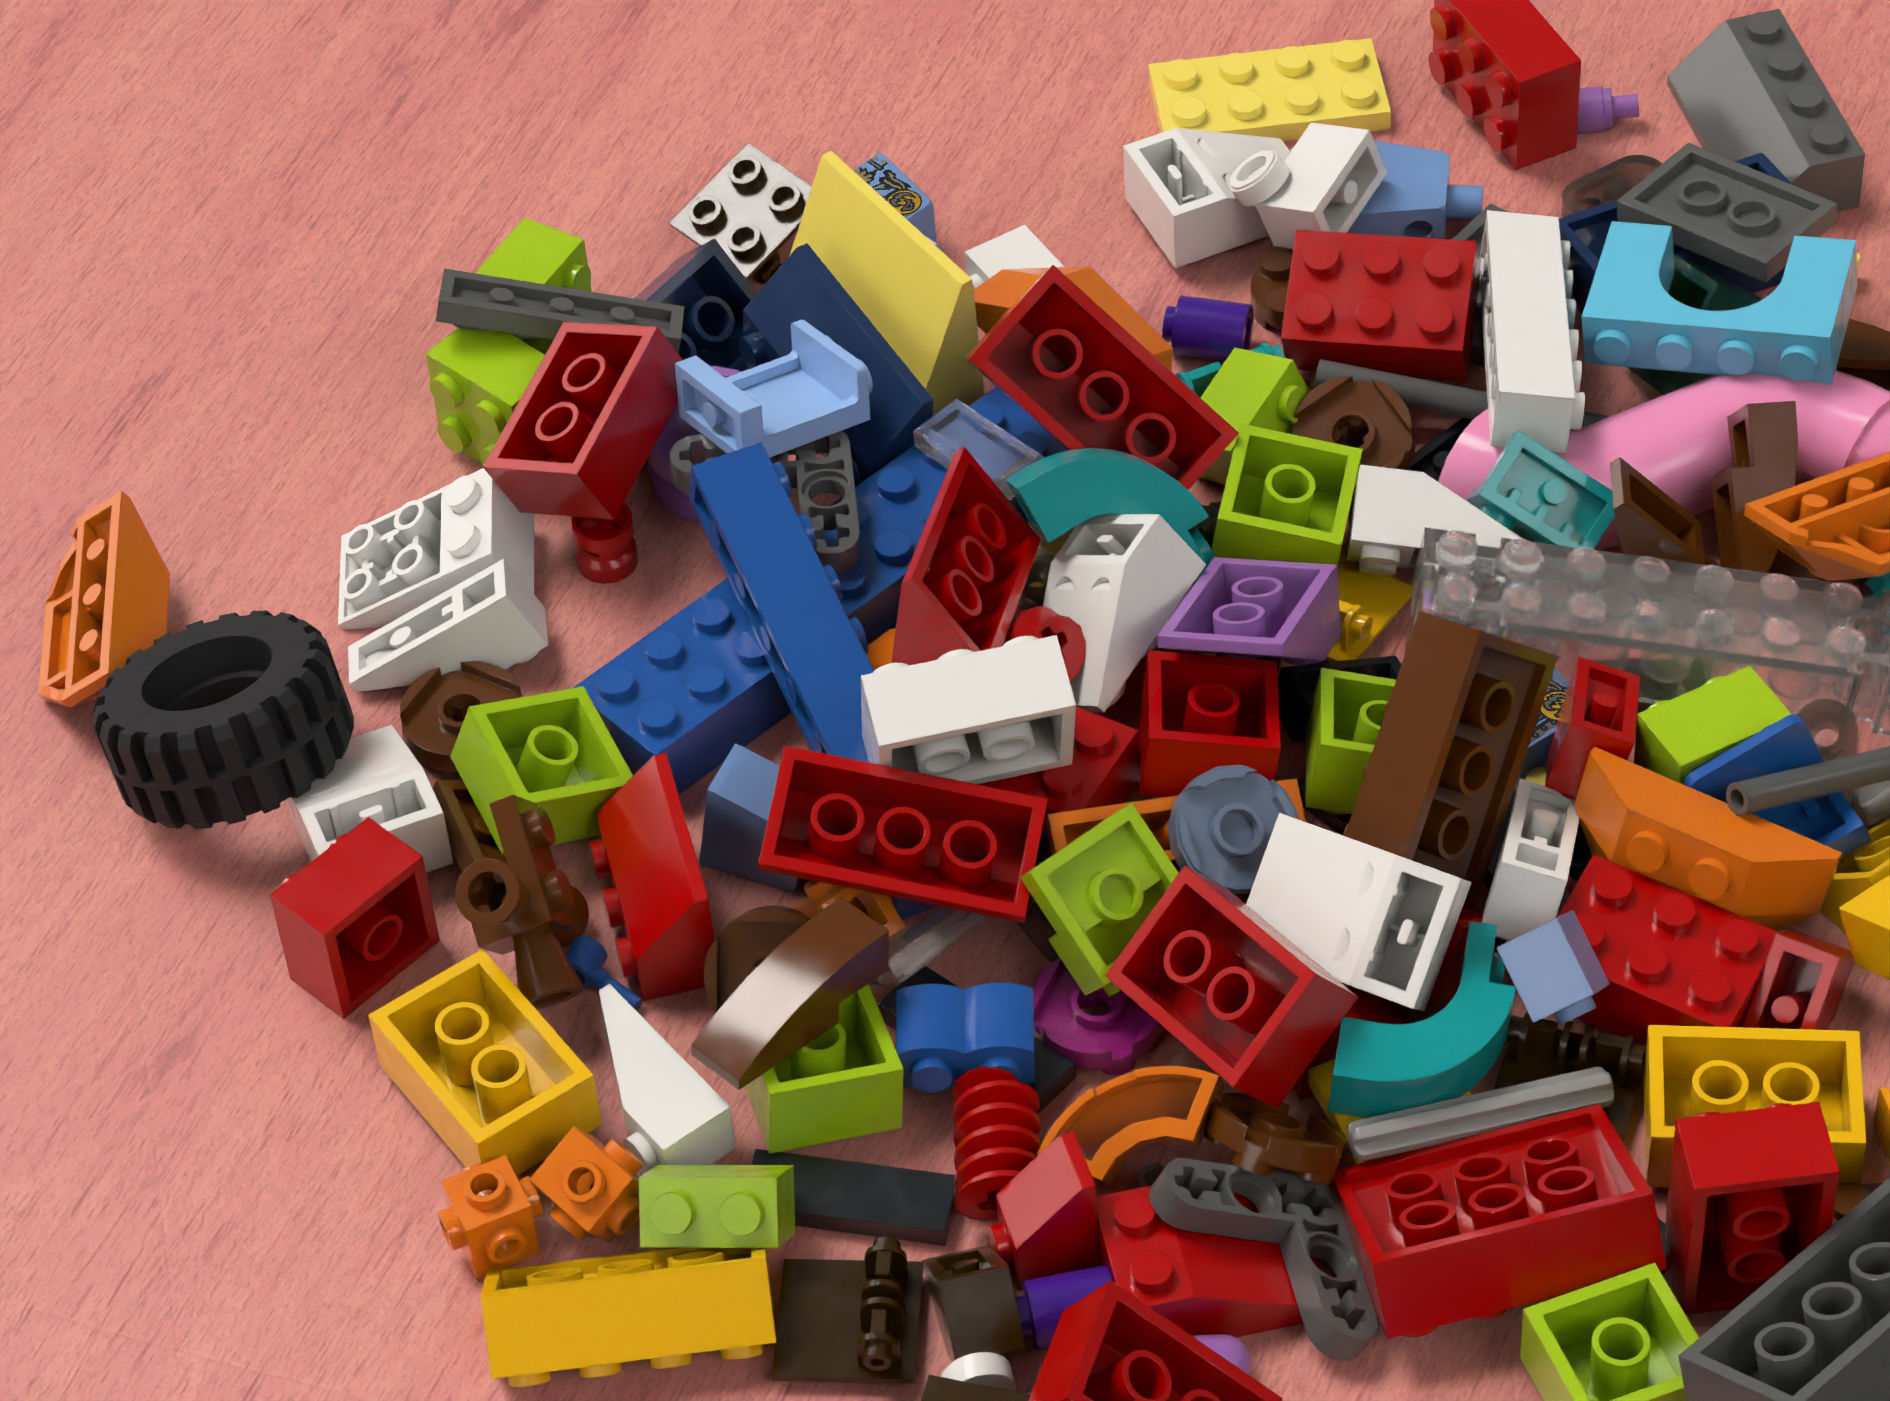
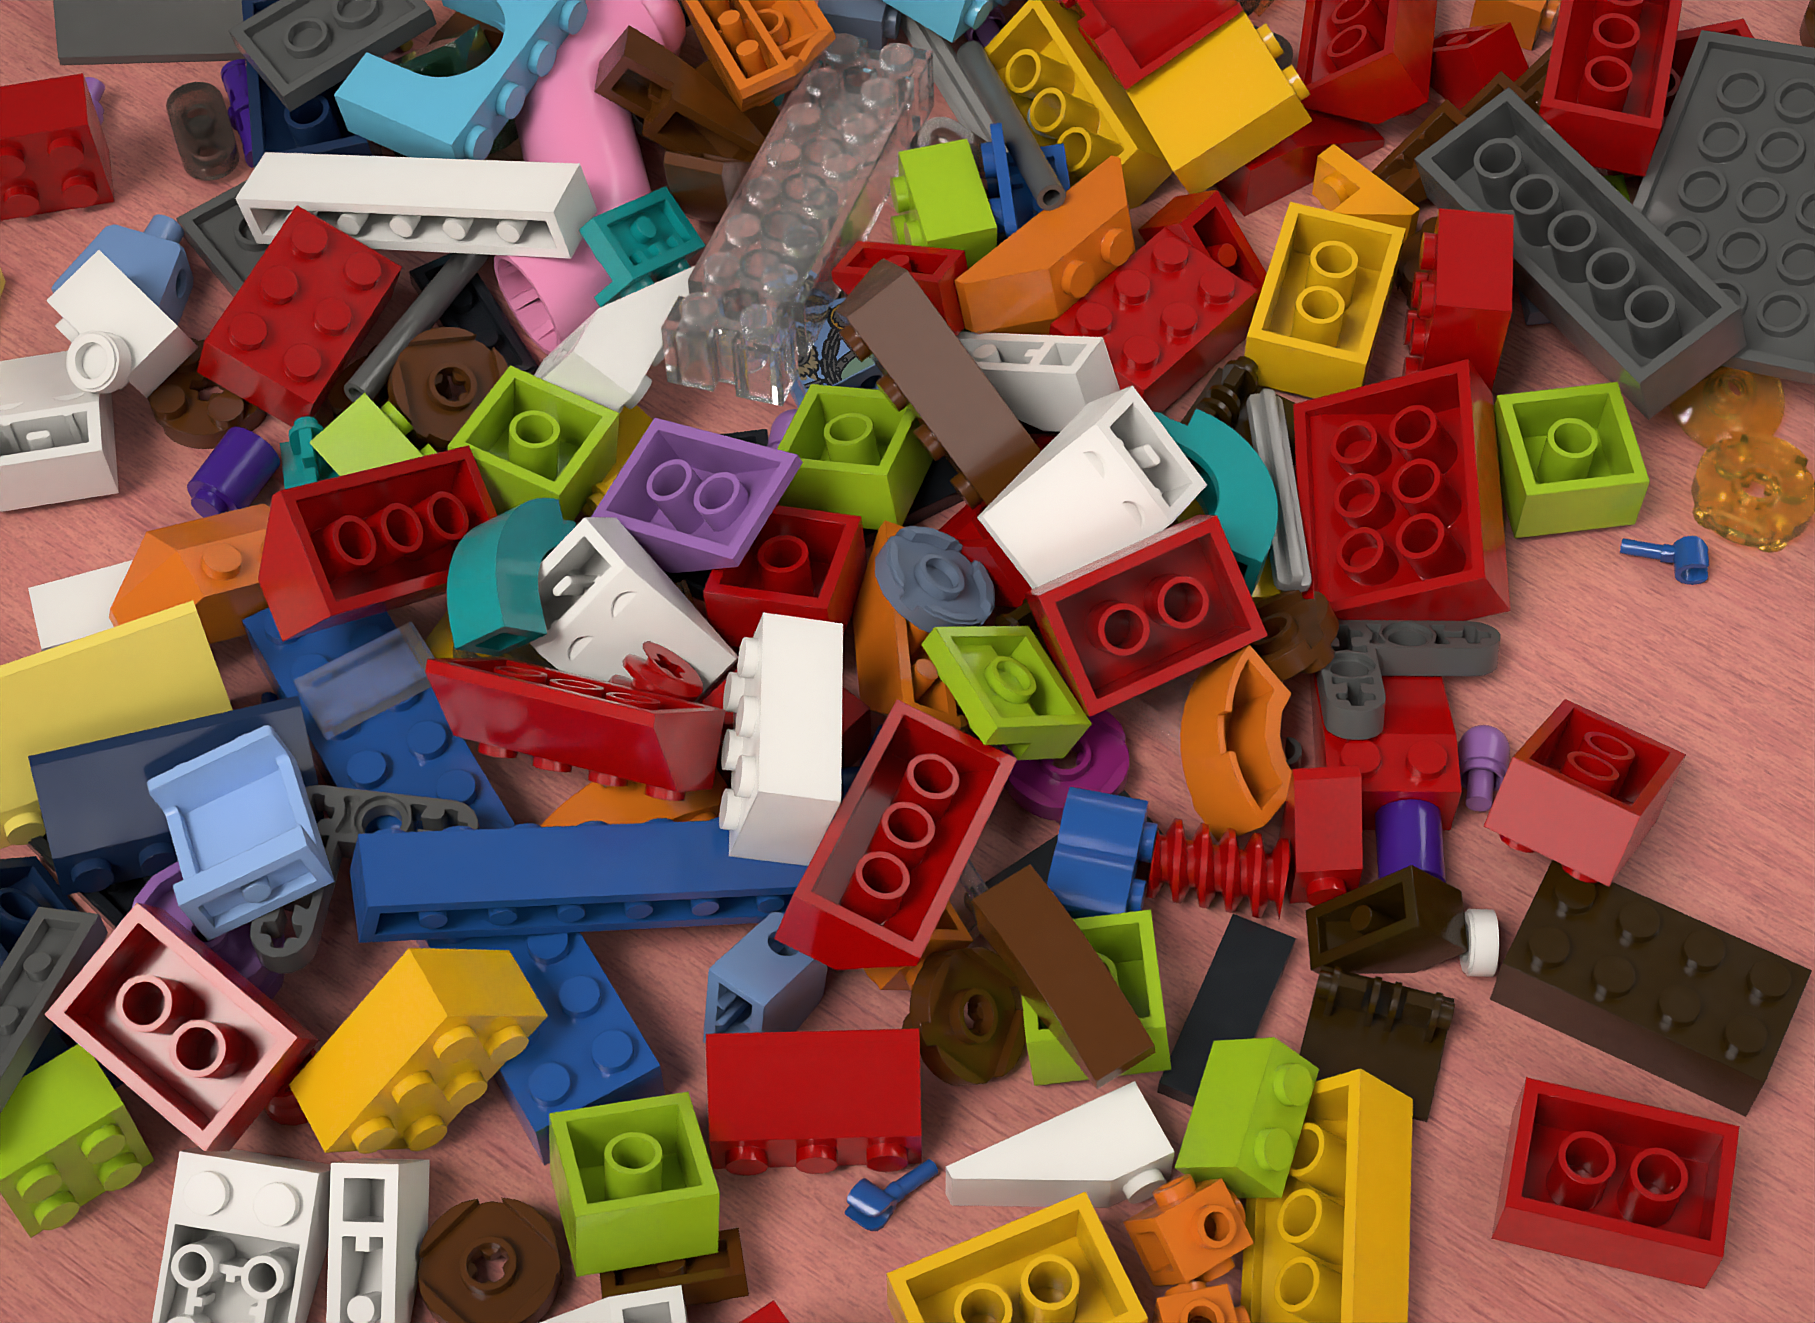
camera: 80 degrees left, 10 degrees up
(526, 904) = (843, 1219): reddish brown brick -> none
(612, 577) = (418, 1050): none -> yellow brick
(1554, 969) = (1181, 376): medium blue brick -> none

